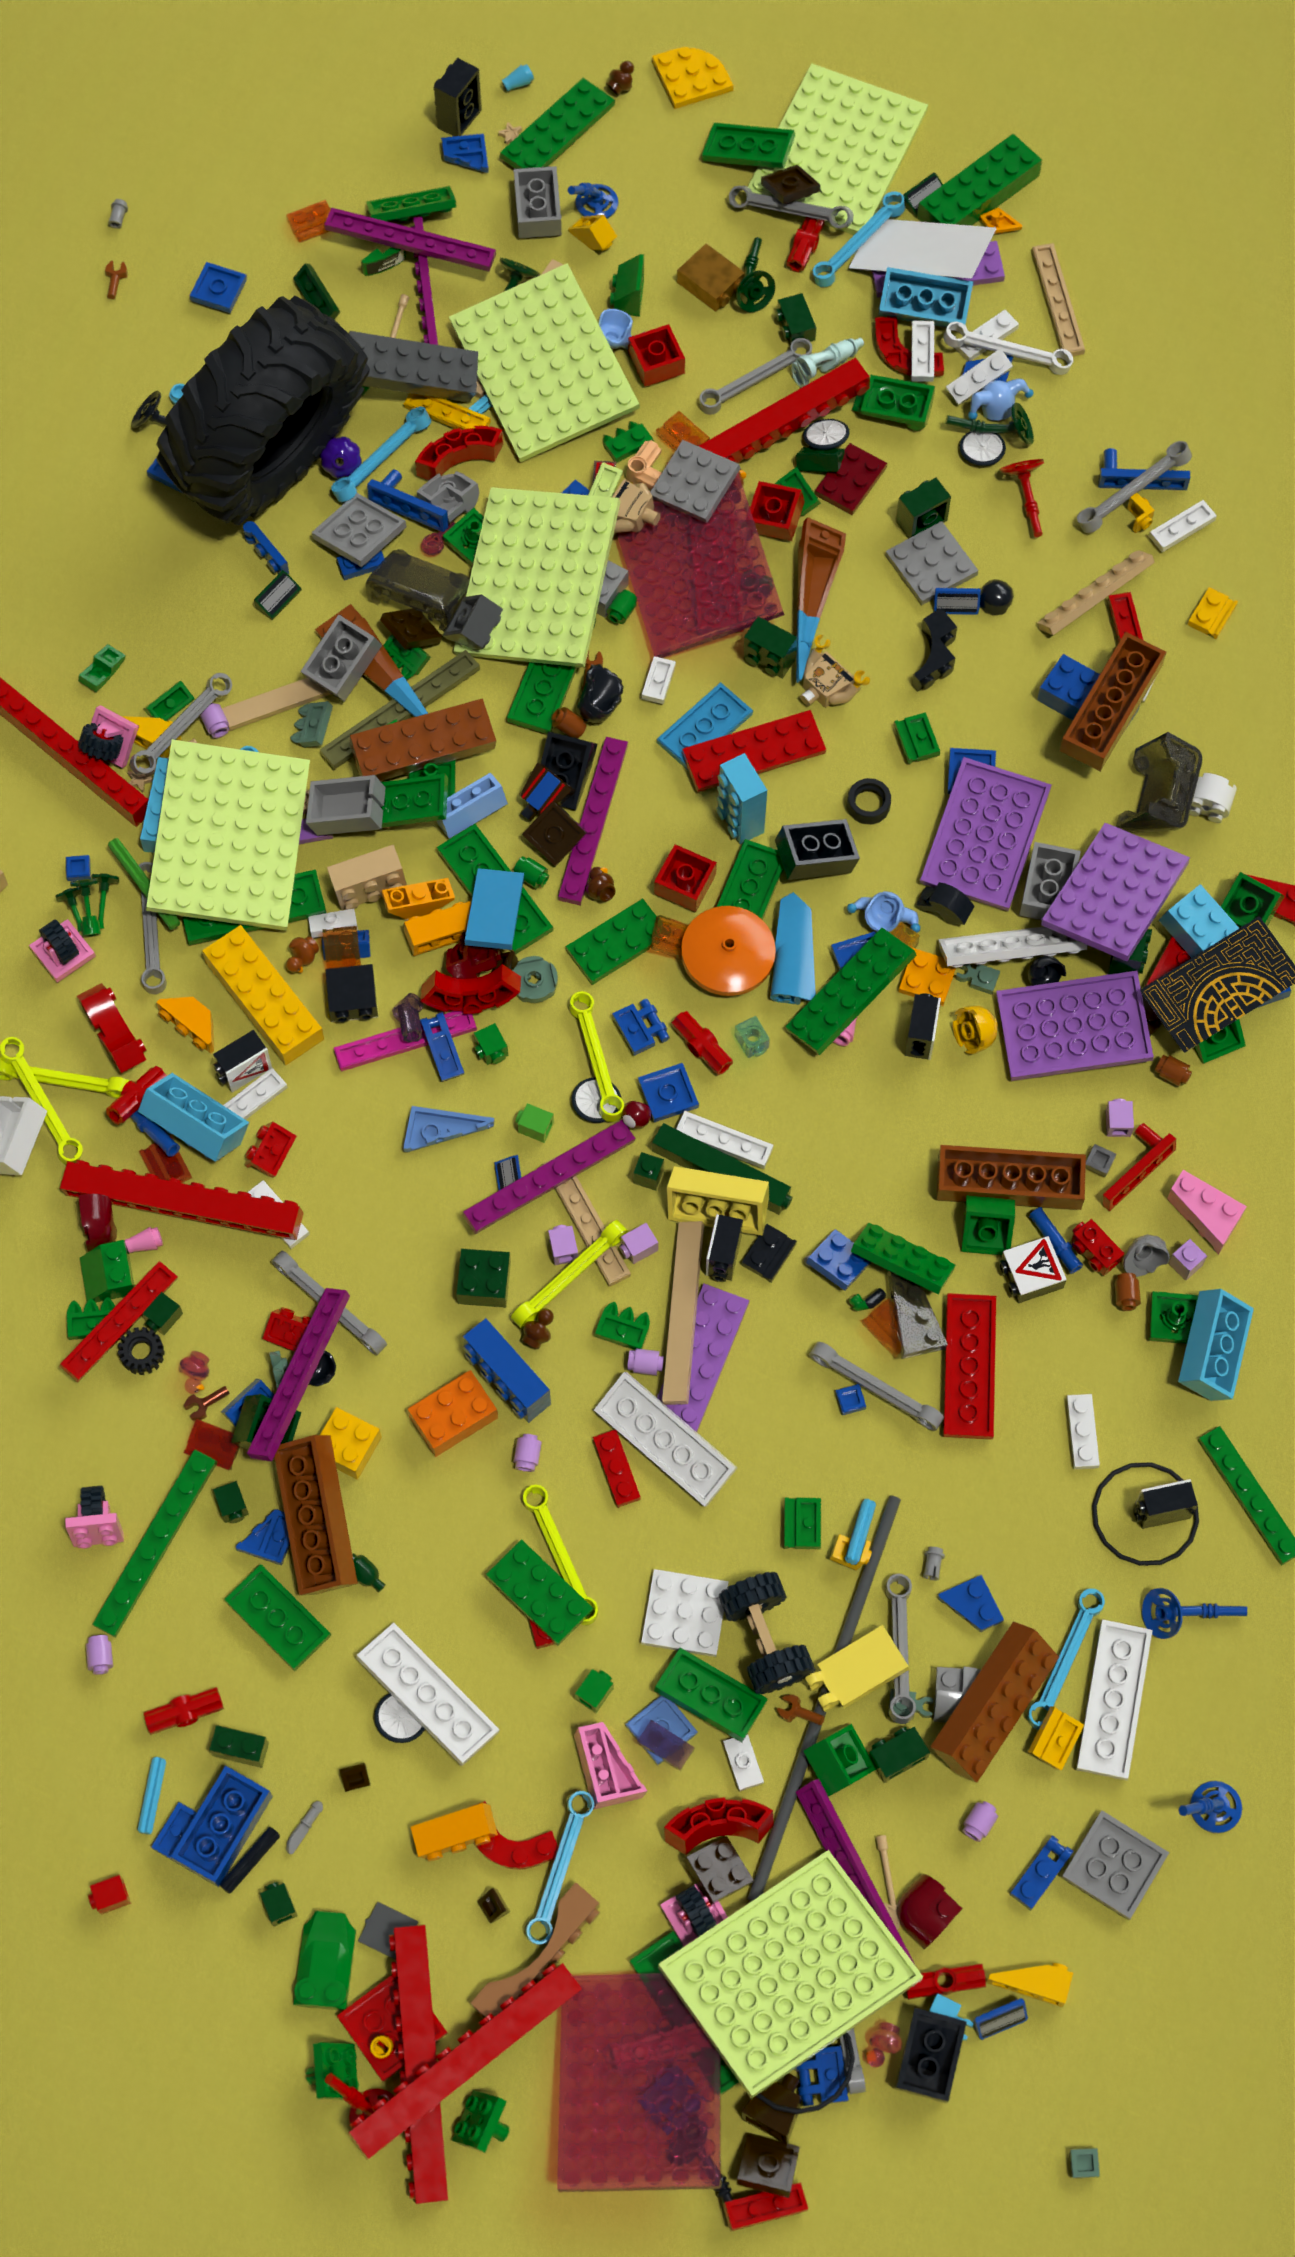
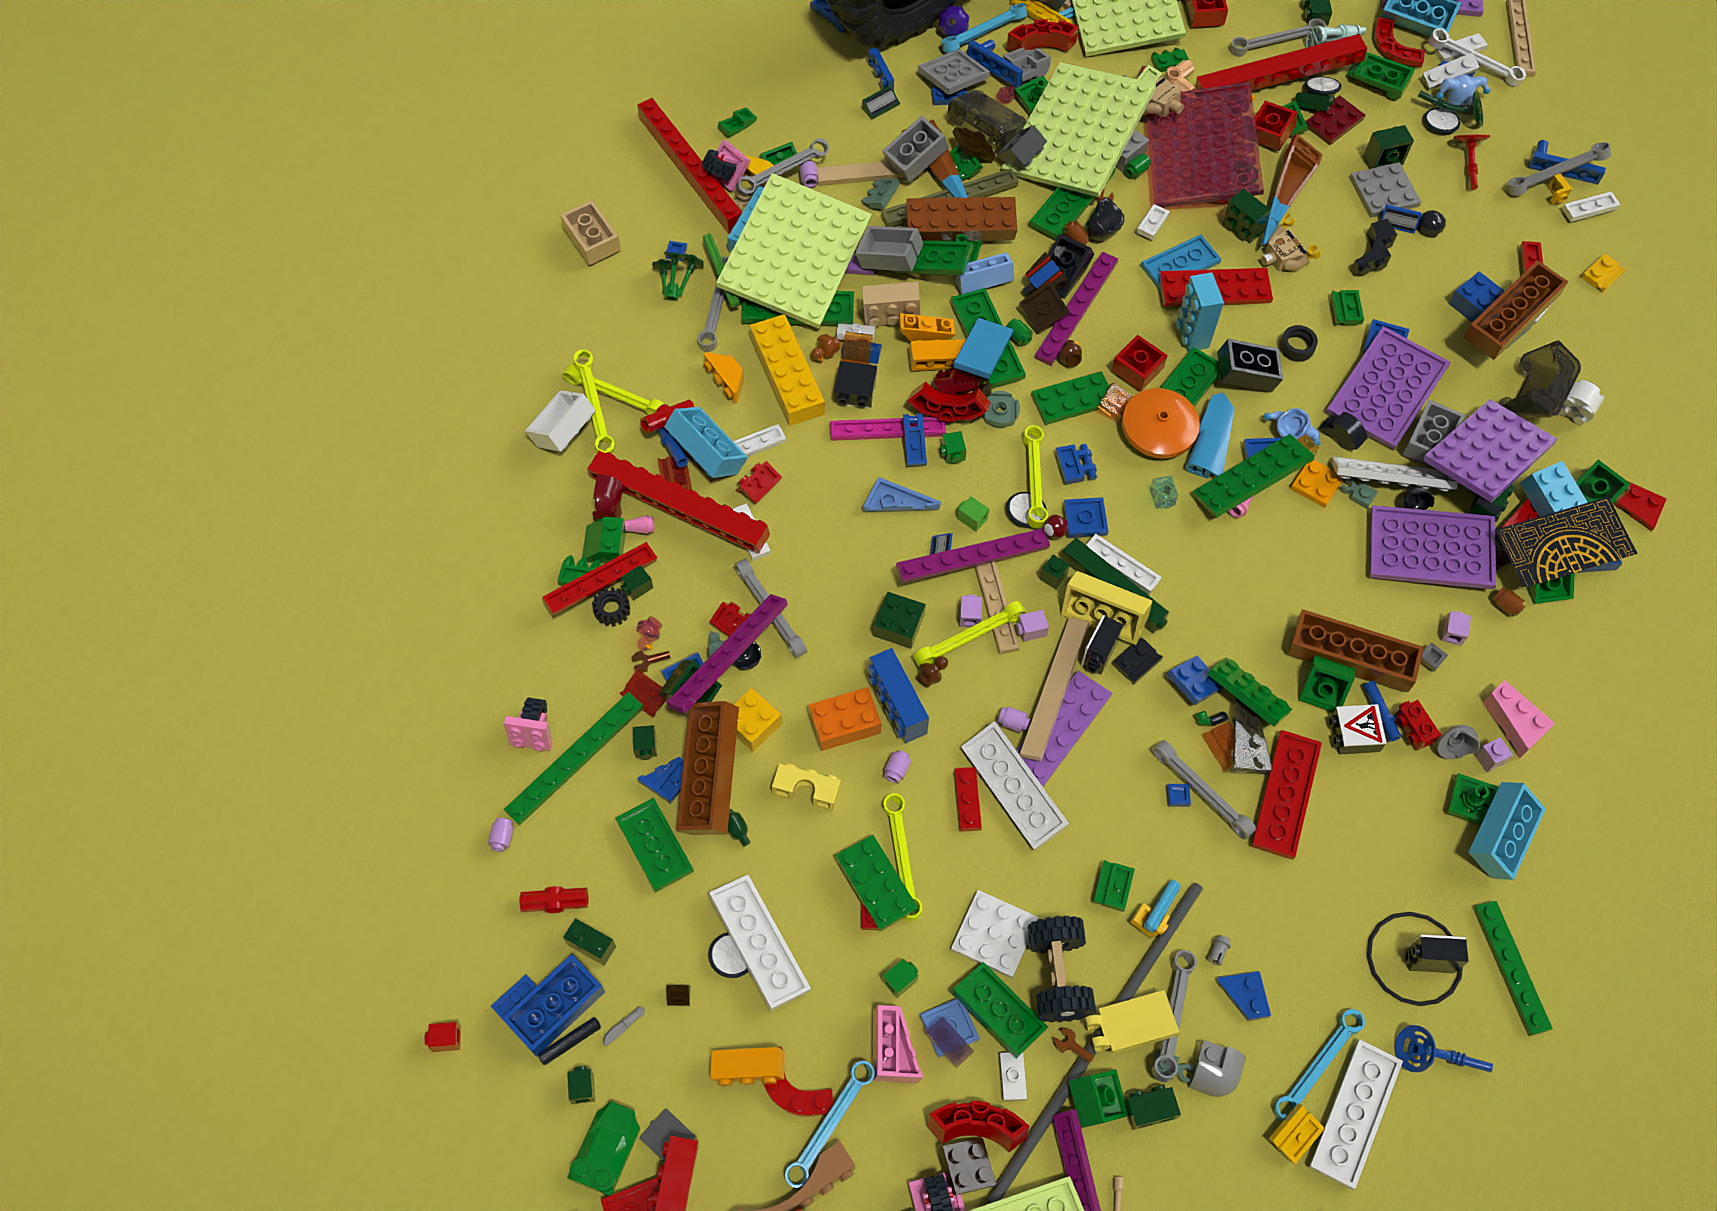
camera: 15 degrees right, 5 degrees down
(61, 949) = (644, 301): bright pink plate -> none
(114, 1032) = (666, 371): red brick -> none
(151, 1795) = (506, 963): medium azure axle -> none
(241, 1061) = (755, 411): piece -> none
(407, 1014) = (894, 411): piece -> none
(410, 1500) = (790, 779): none -> light yellow arch
(493, 1905) = (763, 1140): dark brown slope -> none
(623, 1329) = (1002, 688): green plate -> none
(681, 428) = (1211, 61): clear orange plate -> none
(695, 481) = (1216, 89): light grey plate -> none
(702, 1043) = (1122, 487): red piece -> none
(922, 351) = (1410, 44): white plate -> none
(922, 1026) = (1306, 516): black piece -> none
(975, 1028) = (1348, 528): yellow cylinder -> none
(980, 1821) = (1212, 1189): lavender brick -> none
(995, 1702) = (1249, 1085): dark orange brick -> none
(1082, 1431) = (1373, 874): white plate -> none
(1095, 592) = (1511, 237): tan plate -> none
(1127, 1291) = (1436, 767): dark orange brick -> none
(1160, 1151) = (1486, 662): red piece -> none

